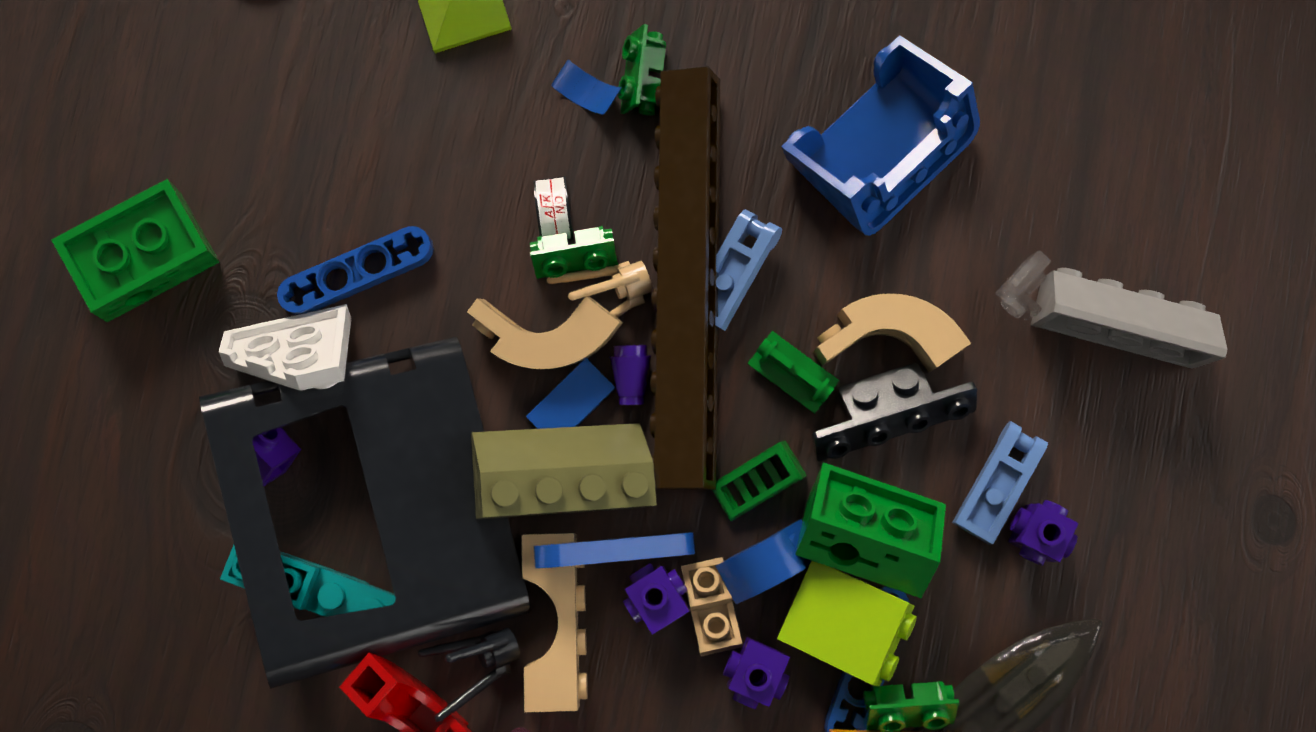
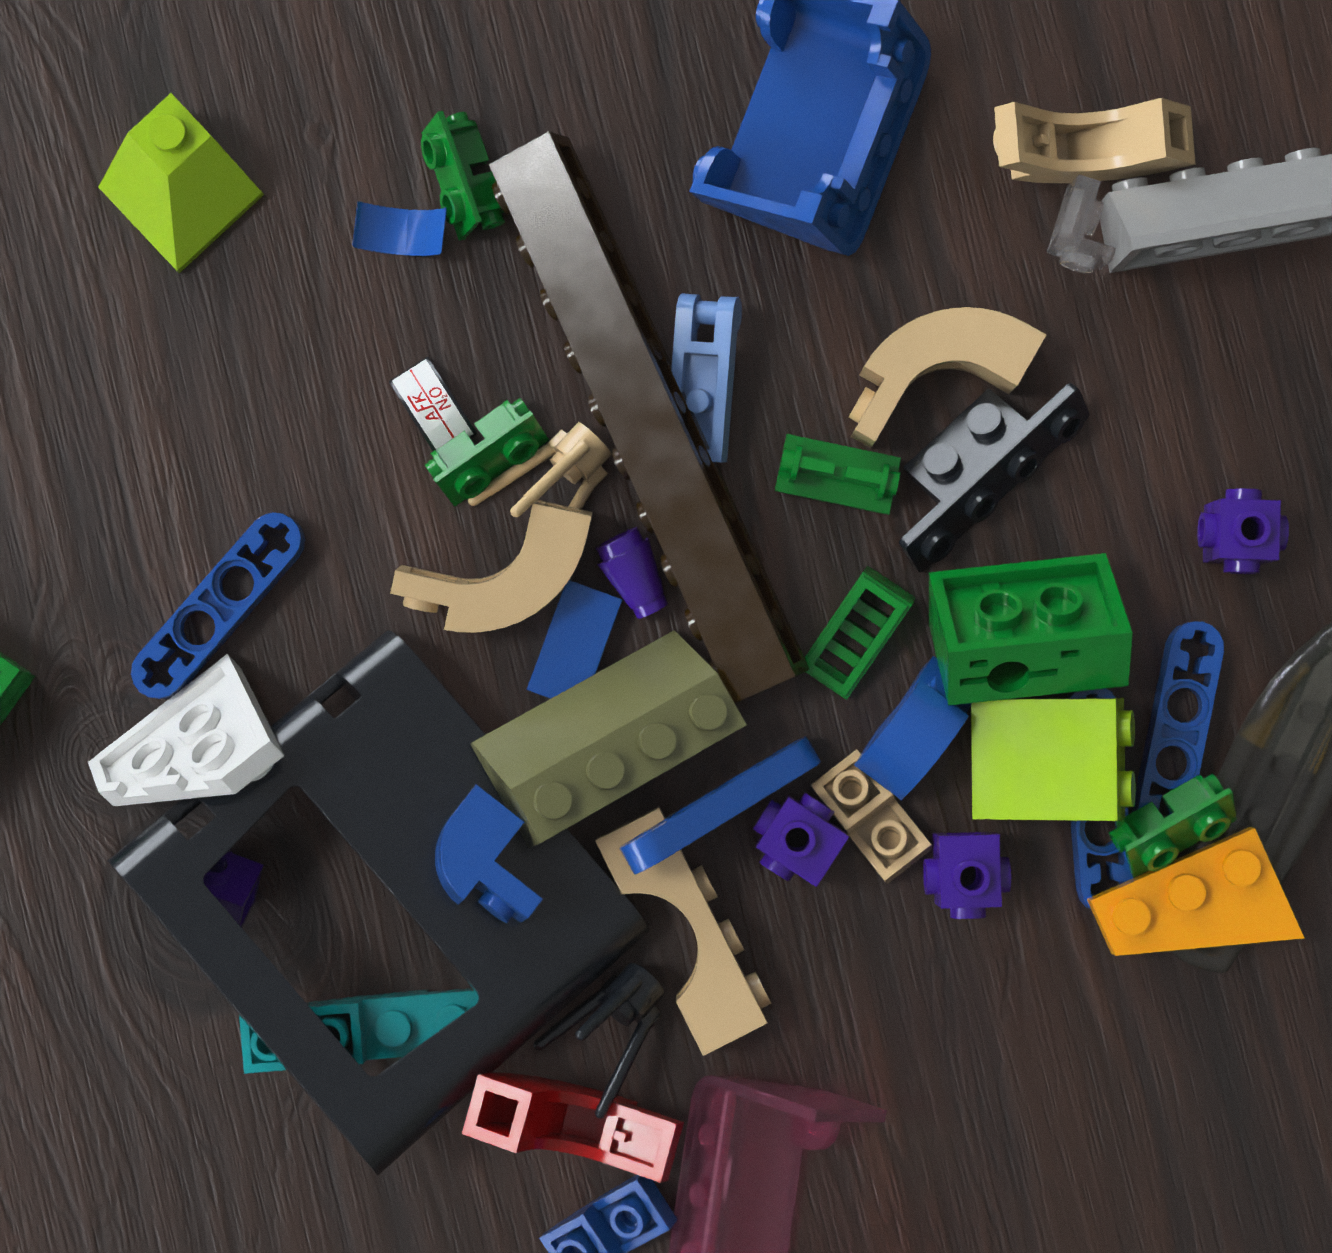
camera: 25 degrees left, 5 degrees up
(431, 504) = (468, 854): none -> blue brick
(934, 643) = (1163, 729): none -> blue beam
(999, 484) = (1161, 495): medium blue plate -> none
(1065, 240) = (1098, 145): none -> tan arch

